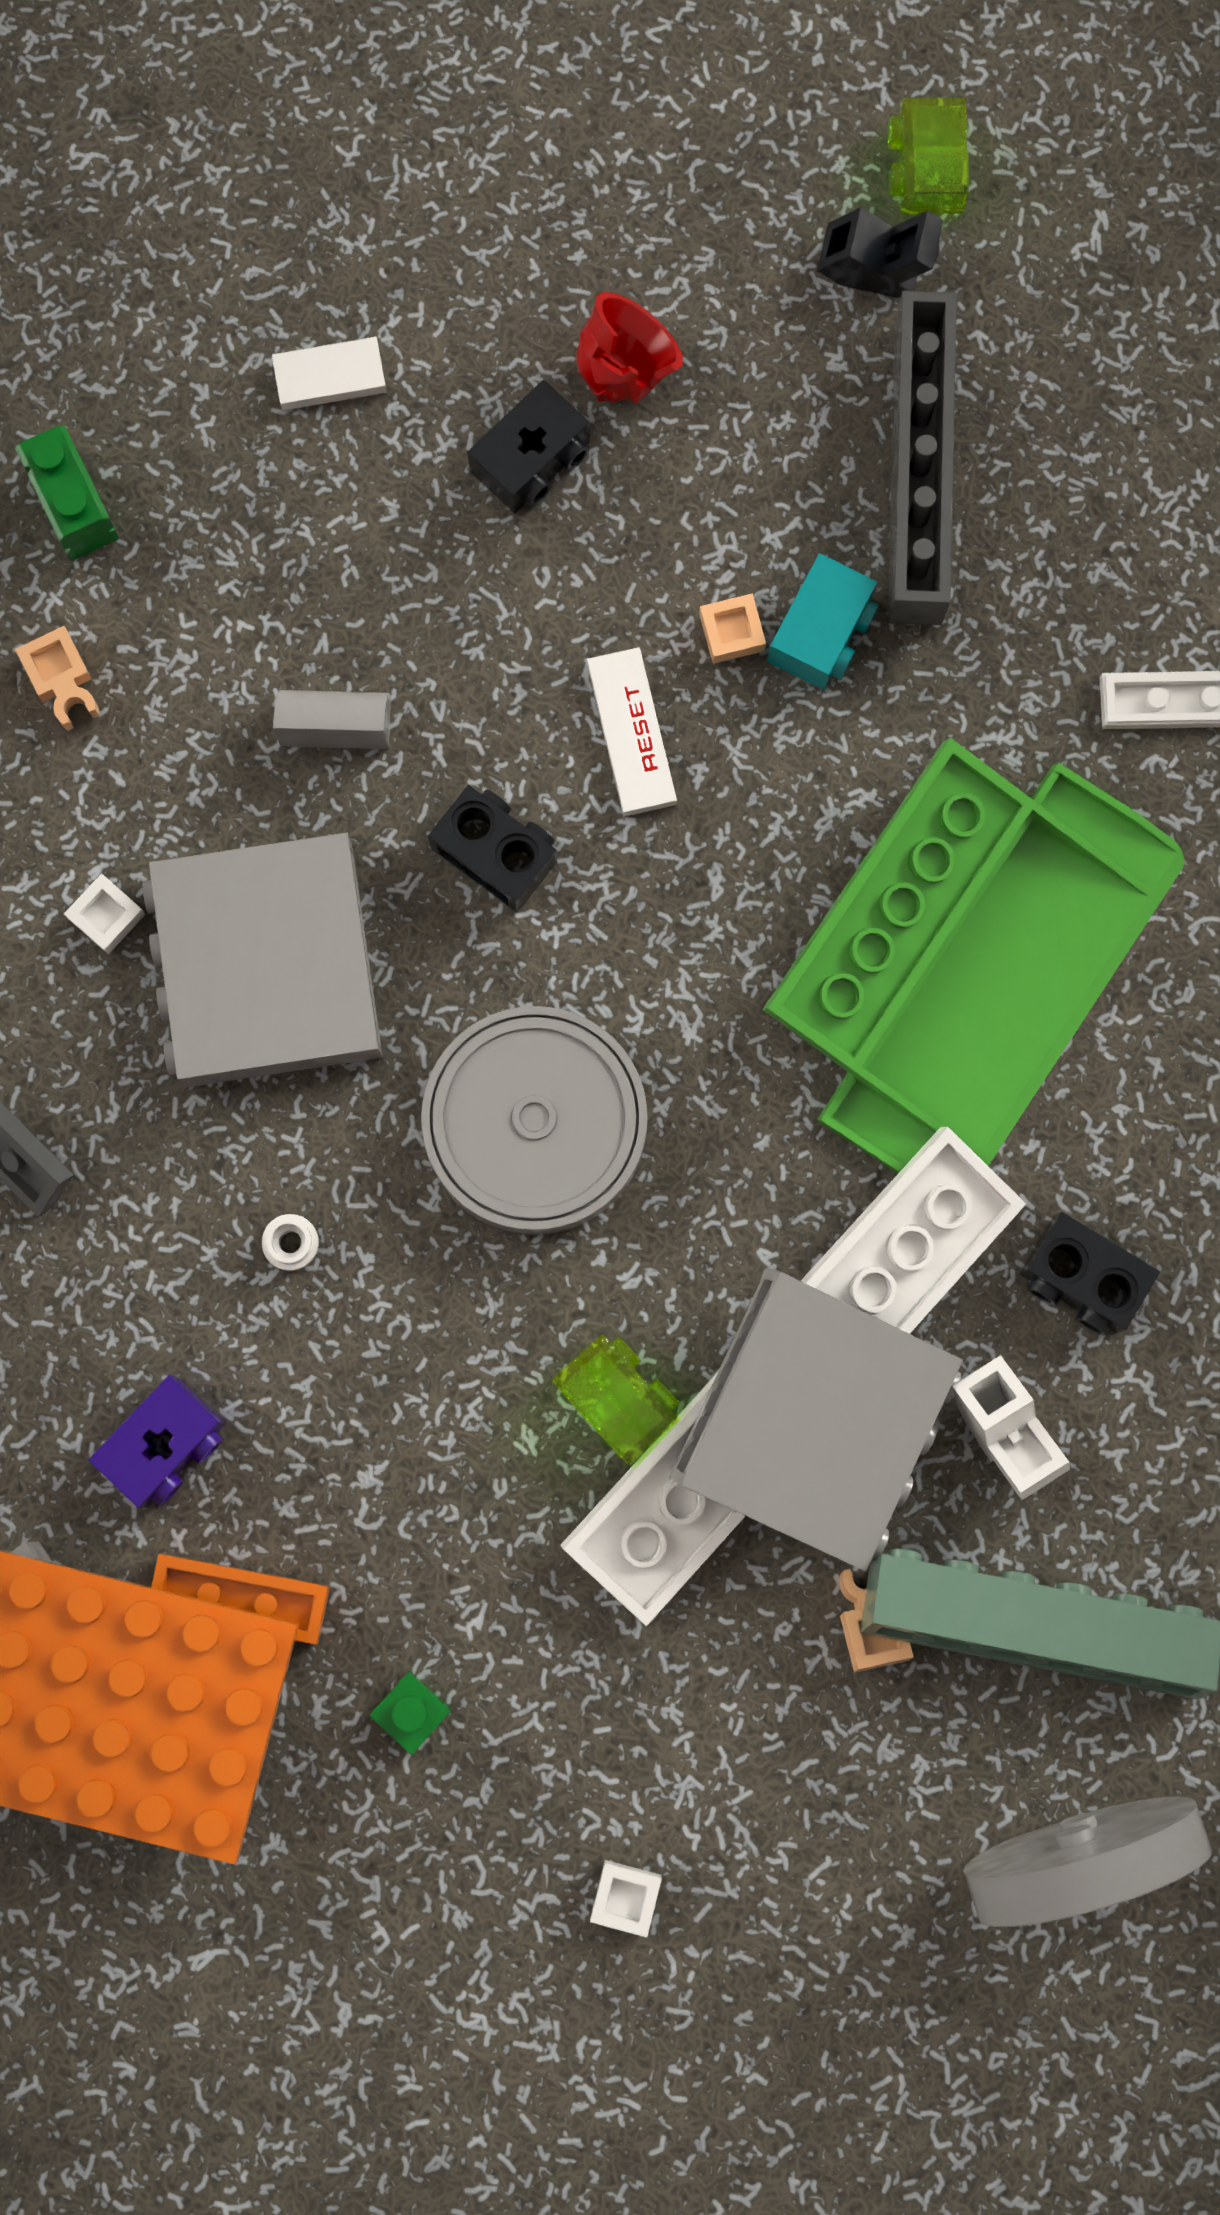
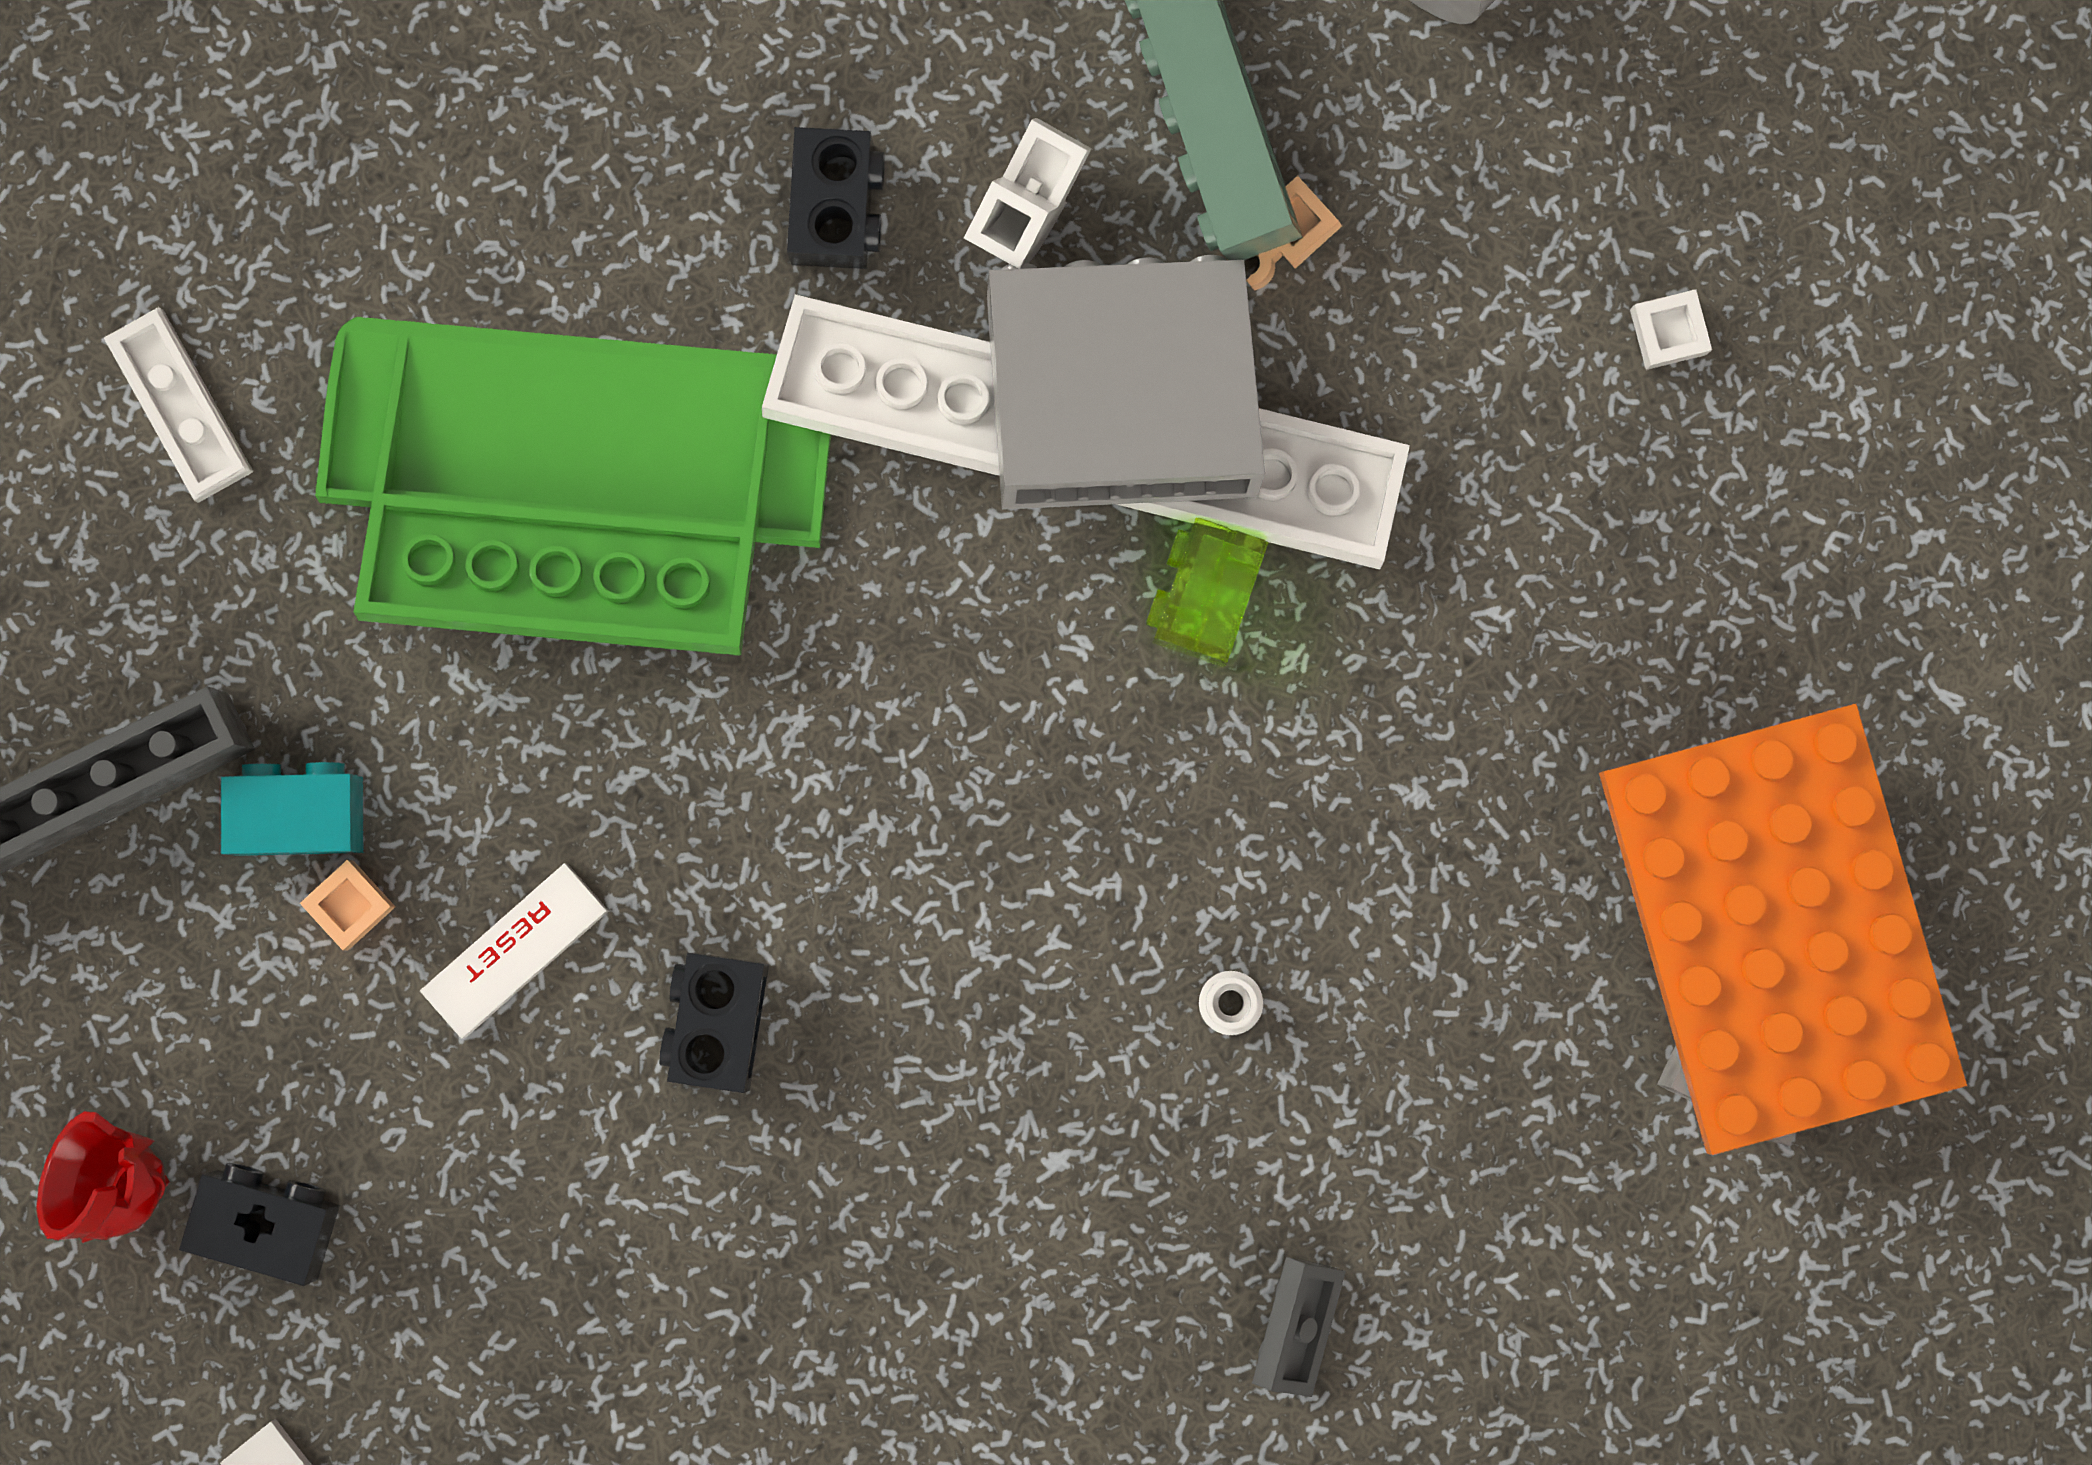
camera: 115 degrees left, 5 degrees up
(104, 913) = (1002, 1386): white plate -> none
(127, 1453) = (1539, 1023): dark purple brick -> none
(247, 1590) = (1594, 852): orange plate -> none
(262, 960) = (962, 1194): light grey brick -> none
(332, 719) = (667, 1268): light grey brick -> none
(410, 1712) = (1615, 628): green plate -> none
(534, 1120) = (975, 823): light grey brick -> none

